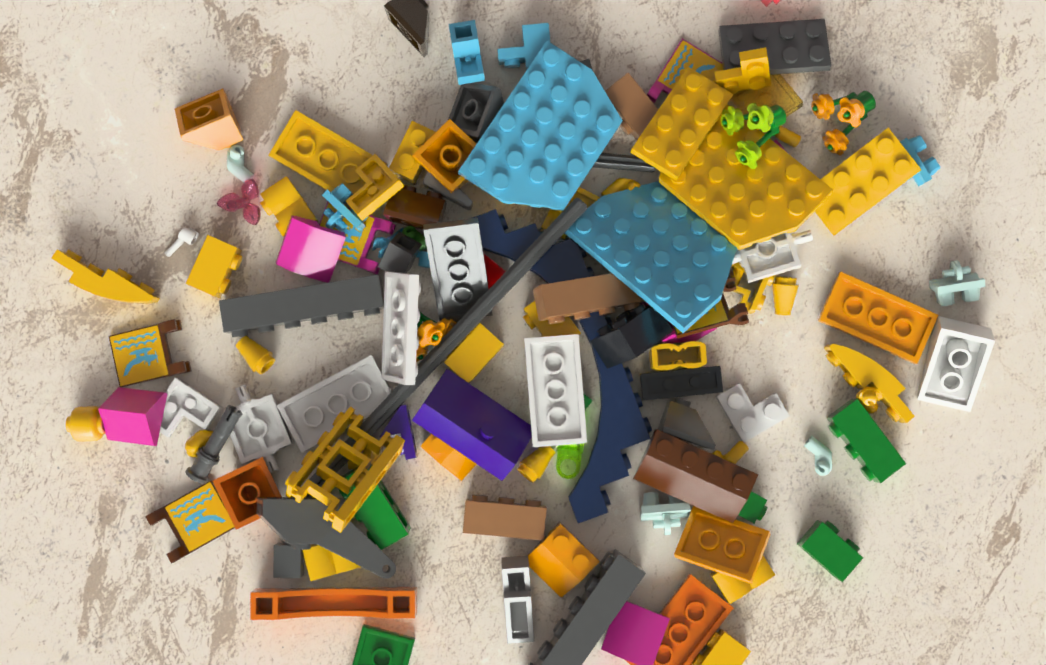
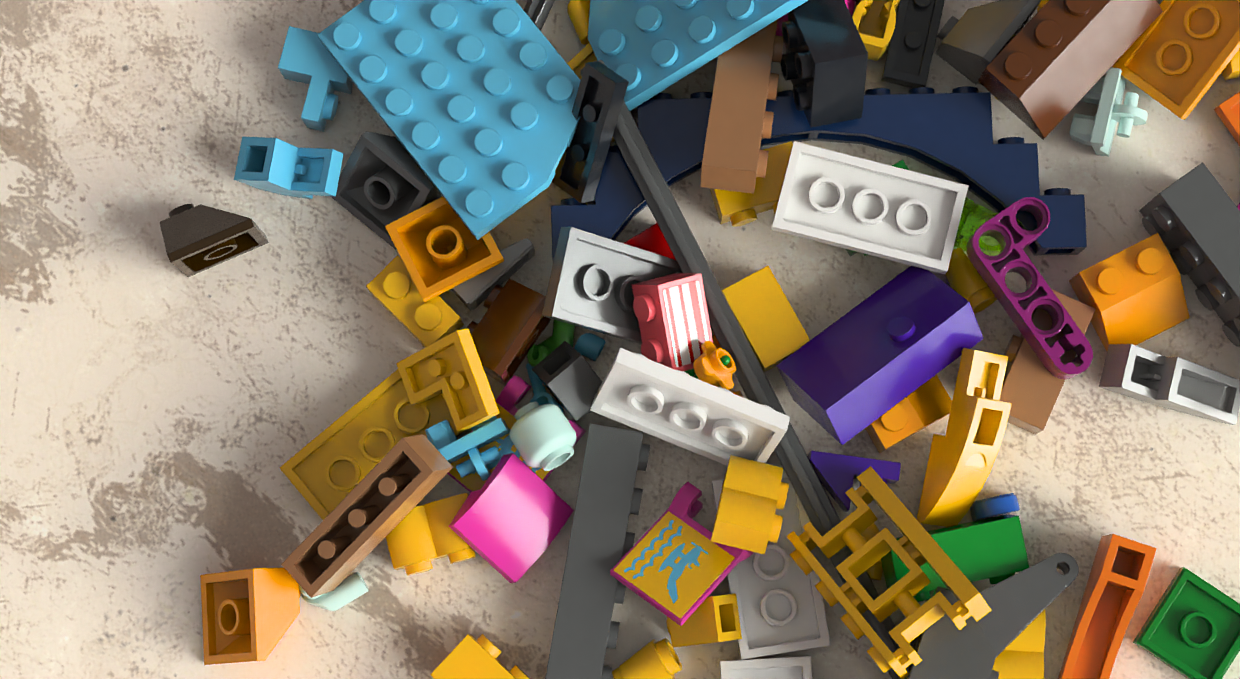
camera: 65 degrees left, 5 degrees down
(233, 202) = (391, 620): clear pink plant -> none
(281, 167) = (367, 515): none -> medium nougat brick
(290, 376) = (710, 623): none -> yellow brick
(318, 352) = (676, 561): none -> flag
(359, 378) = (749, 505): none -> yellow brick
(361, 250) = (543, 436): none -> light aqua head
(412, 520) = (994, 506): none -> blue tile
(440, 493) = (973, 436): none -> yellow slope
(450, 299) = (672, 319): none -> brick
(537, 502) = (1037, 293): none -> magenta beam
(558, 214) = (598, 107): none -> black plate

